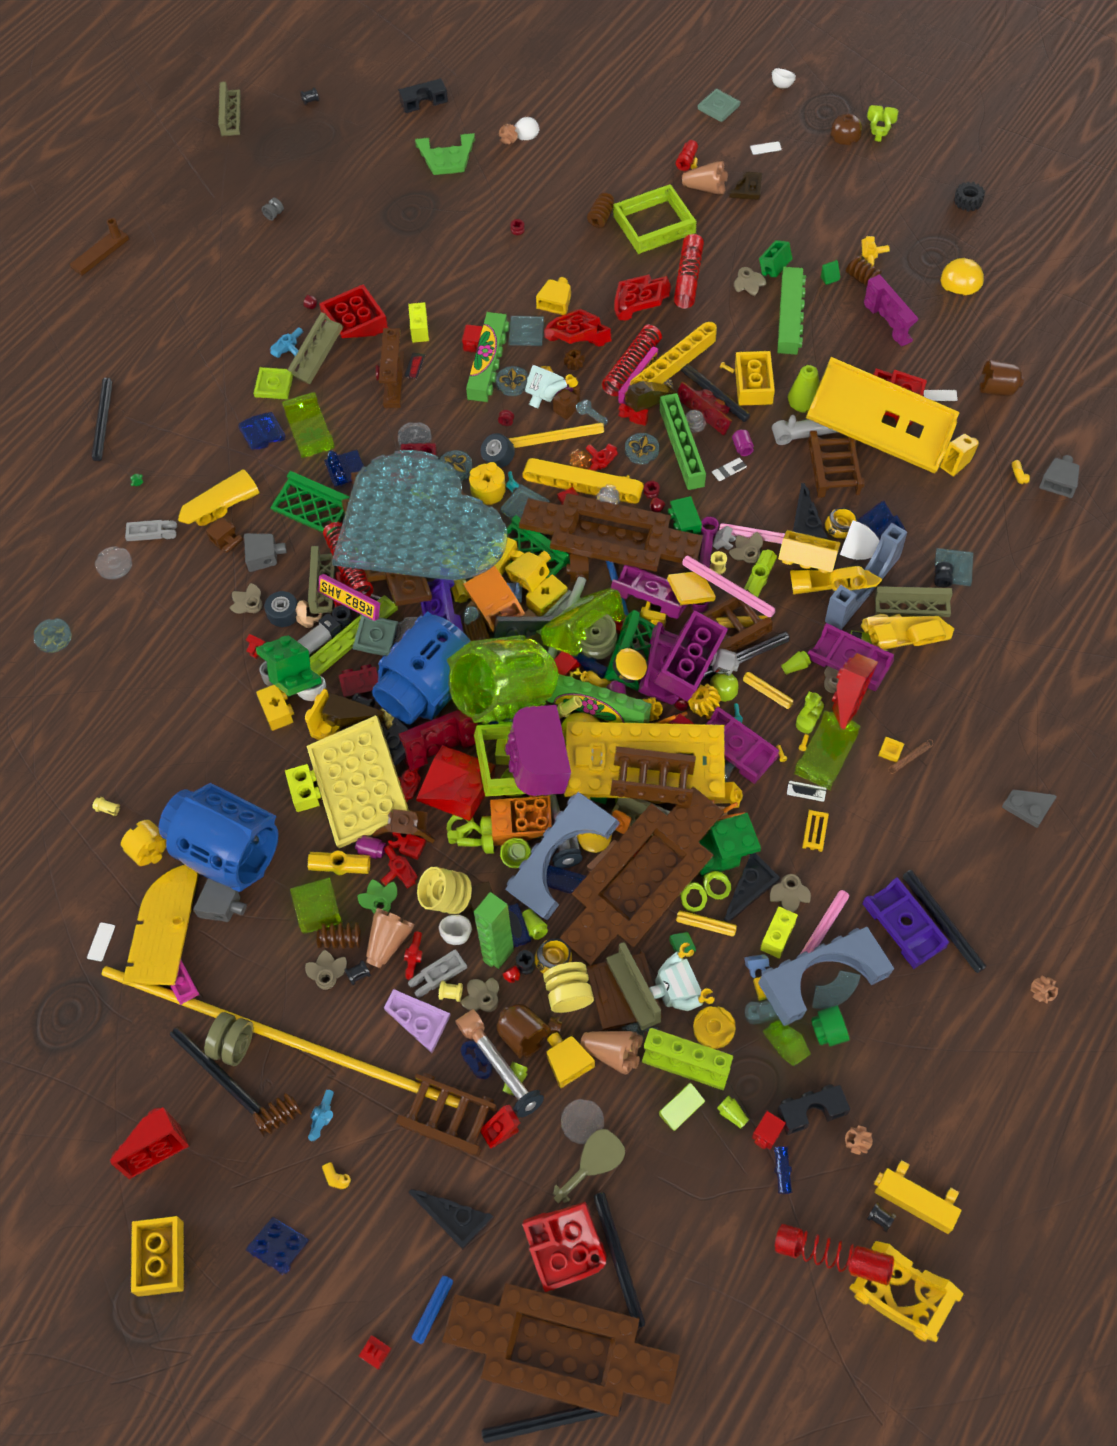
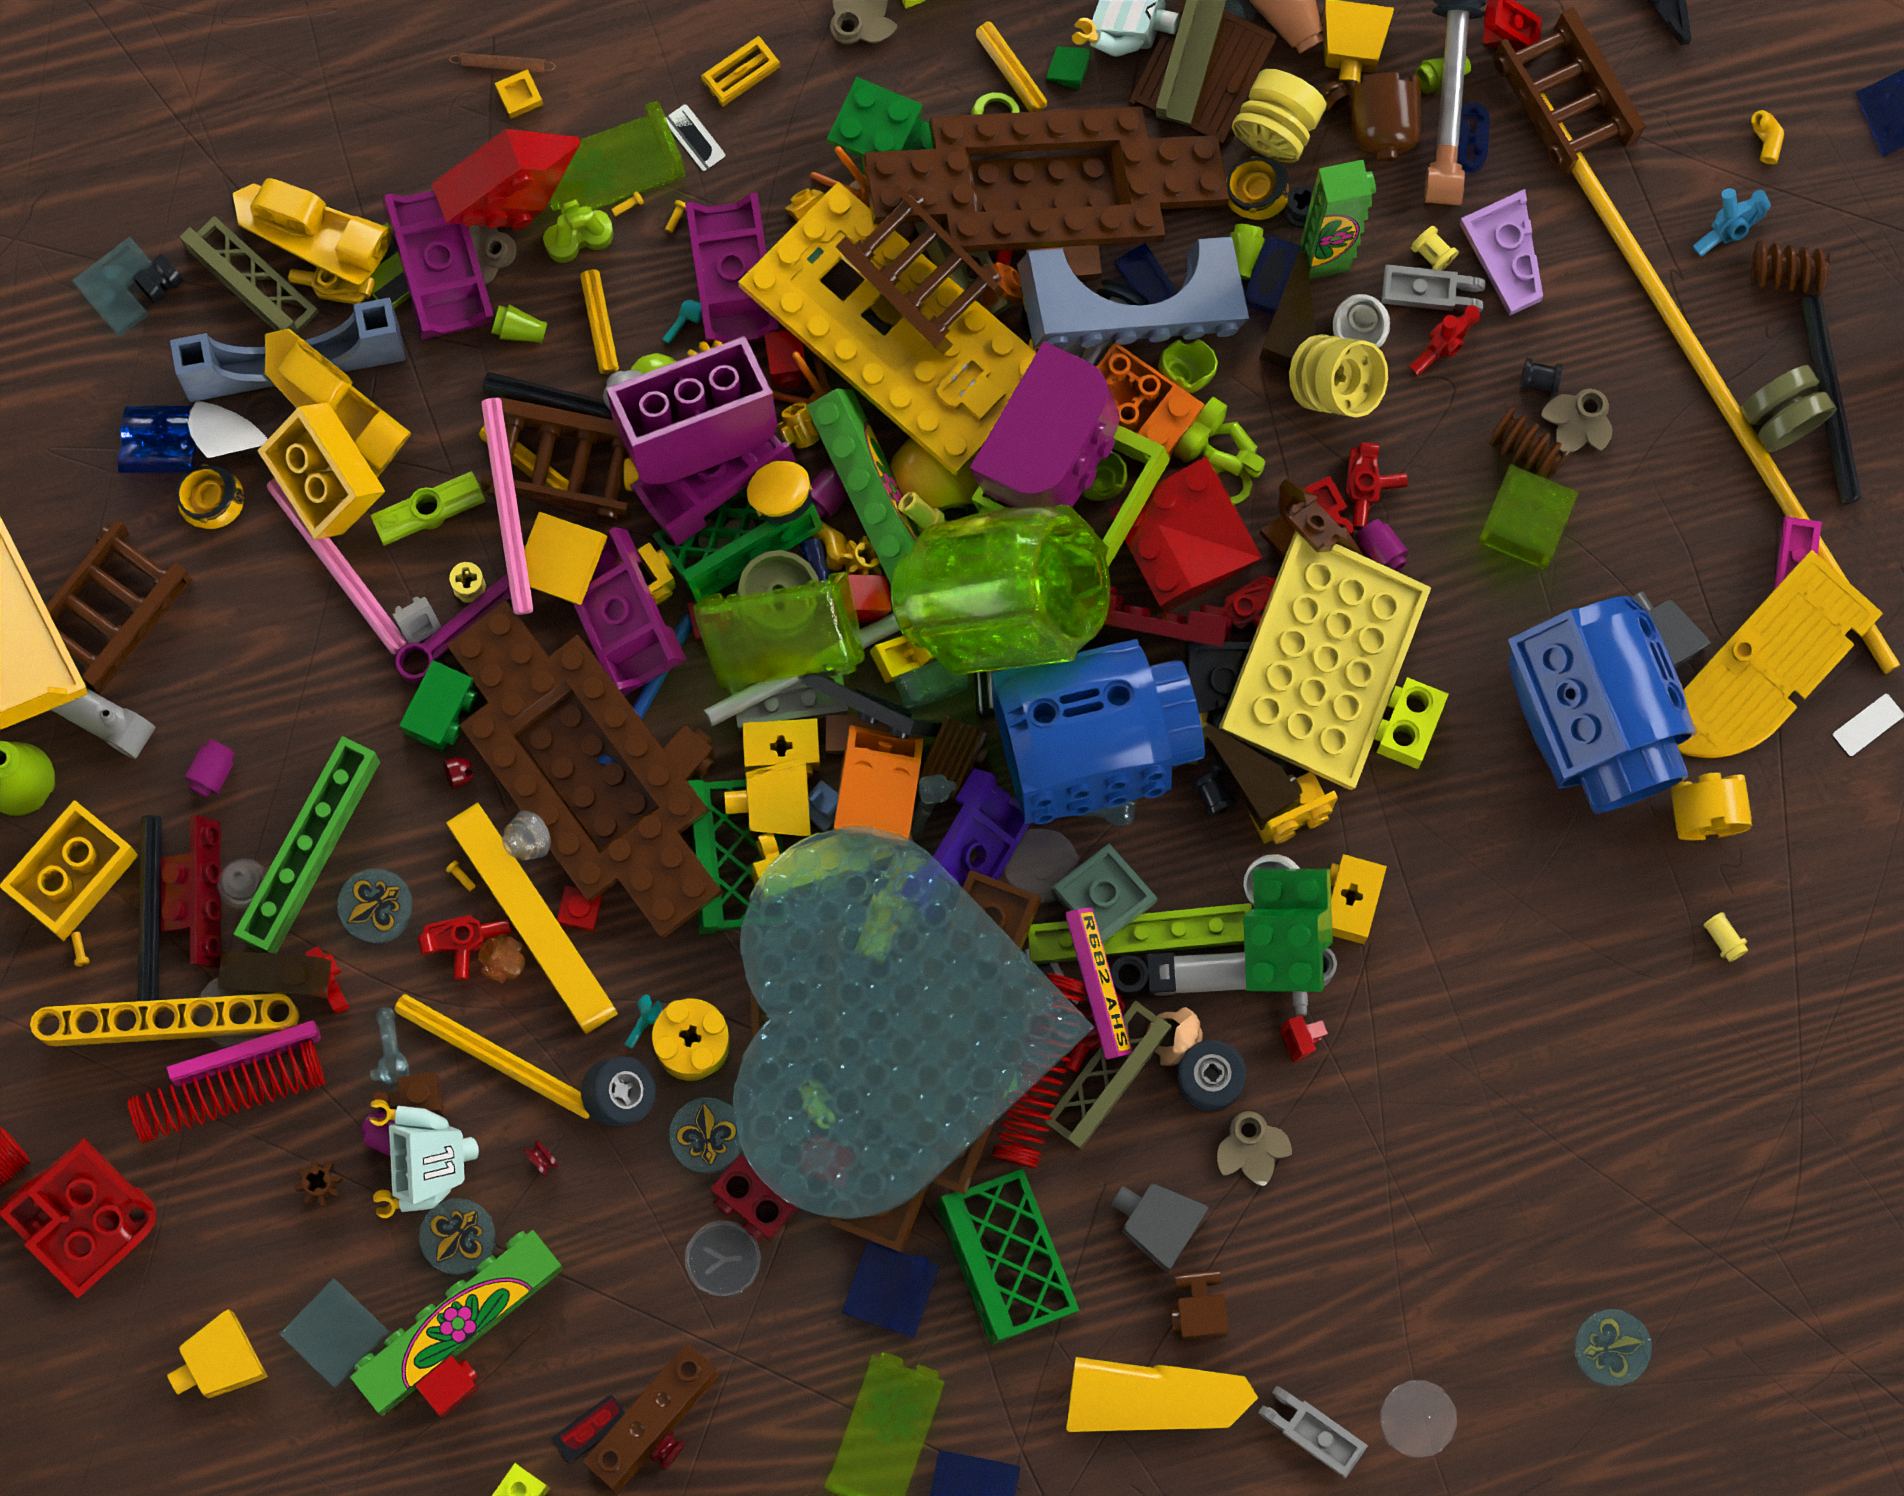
camera: 145 degrees left, 15 degrees up
(351, 863) = (1429, 541): yellow piece -> none
(358, 681) = (1188, 841): dark red bracket -> none
(378, 895) = (1425, 472): bright green plate -> none
(386, 937) = (1462, 389): nougat cone -> none
(481, 992) = (1400, 219): dark tan plate -> none
(517, 501) = (659, 963): clear light blue tile -> none
(578, 327) = (257, 1239): red slope -> none
(651, 494) = (424, 810): dark red bush -> none
(718, 876) = (948, 87): lime piece -> none
(729, 469) = (274, 749): white sticker -> none
(746, 547) = (393, 580): dark tan plate -> none
(754, 882) = (907, 63): black wing -> none
(807, 517) = (260, 542): black wing -> none

